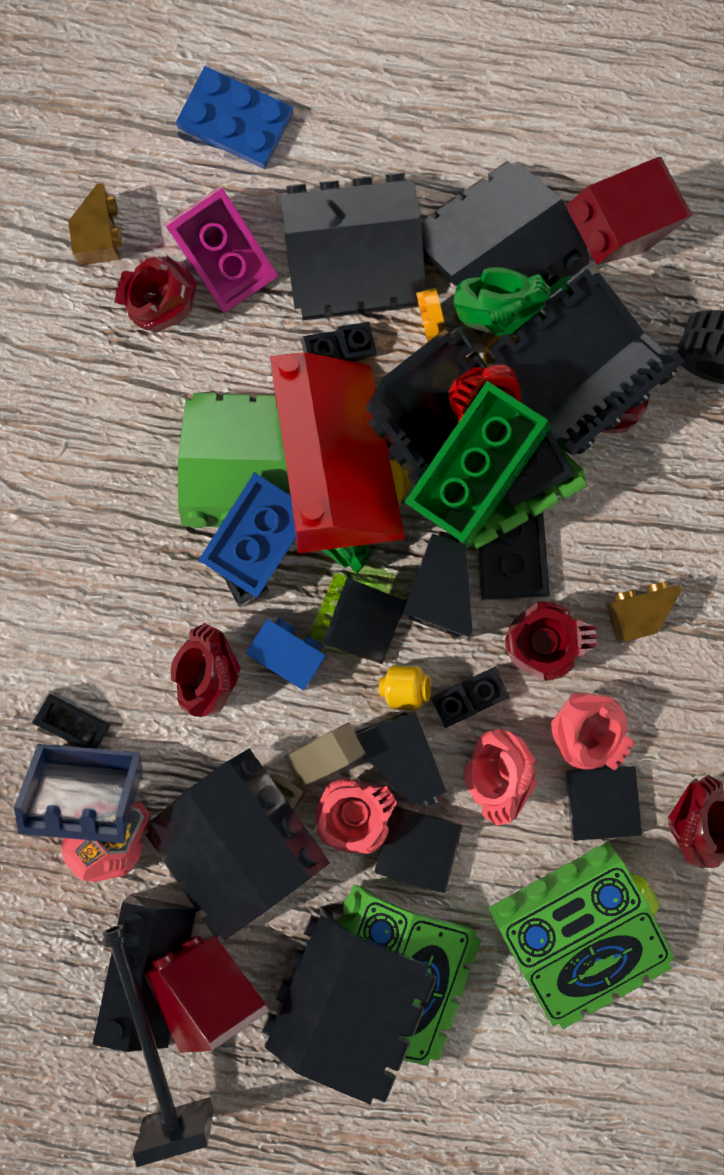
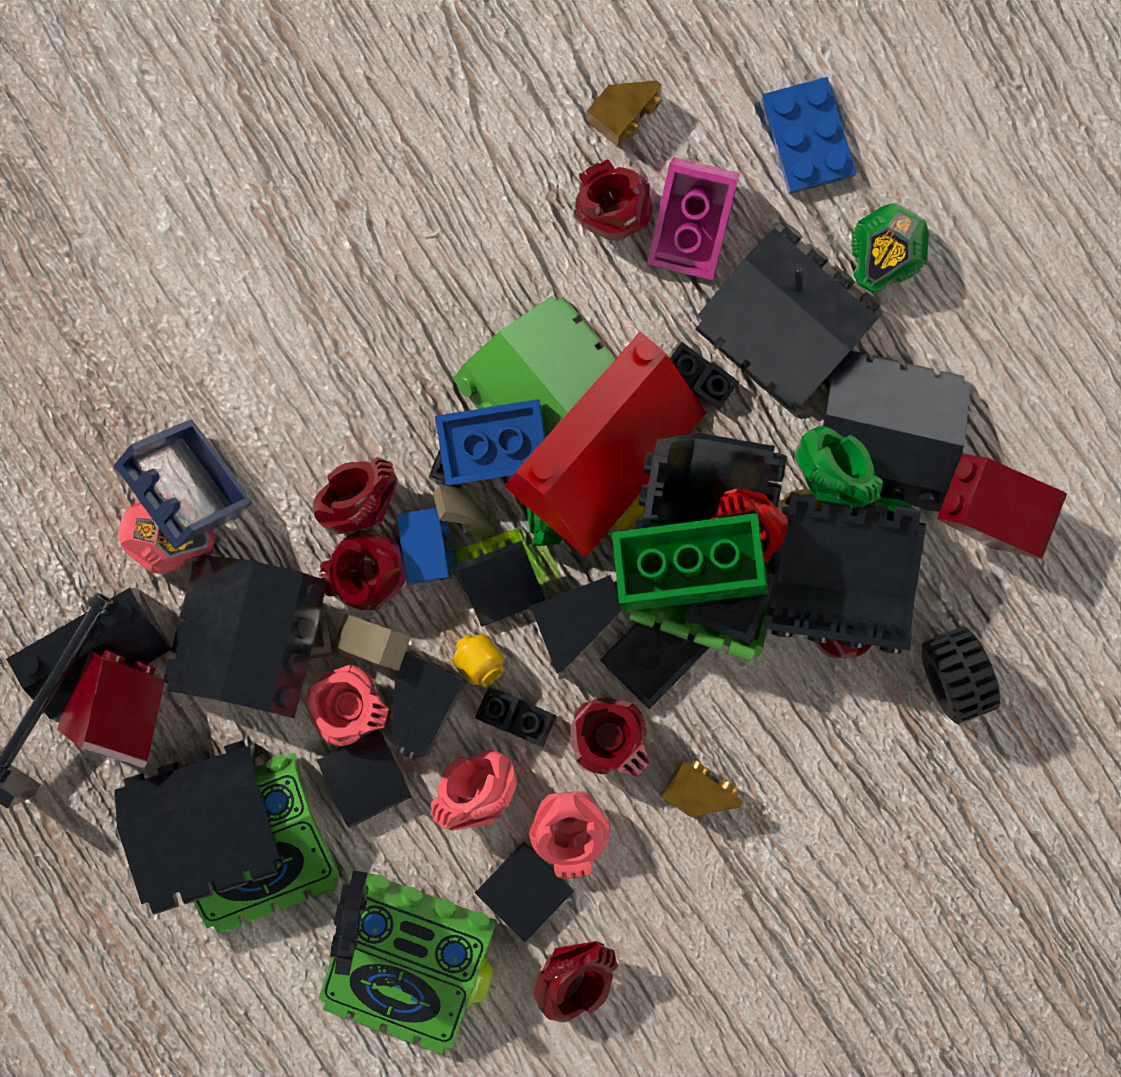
camera: 50 degrees right, 0 degrees up
(77, 711) = (217, 431): black slope -> none
(266, 714) = (364, 570): none -> dark red helmet
(282, 602) = (459, 507): none -> dark tan slope
(367, 129) = (889, 247): none -> helmet
(430, 312) = (780, 433): light orange plate -> none
(524, 960) = (348, 921): none -> black plate

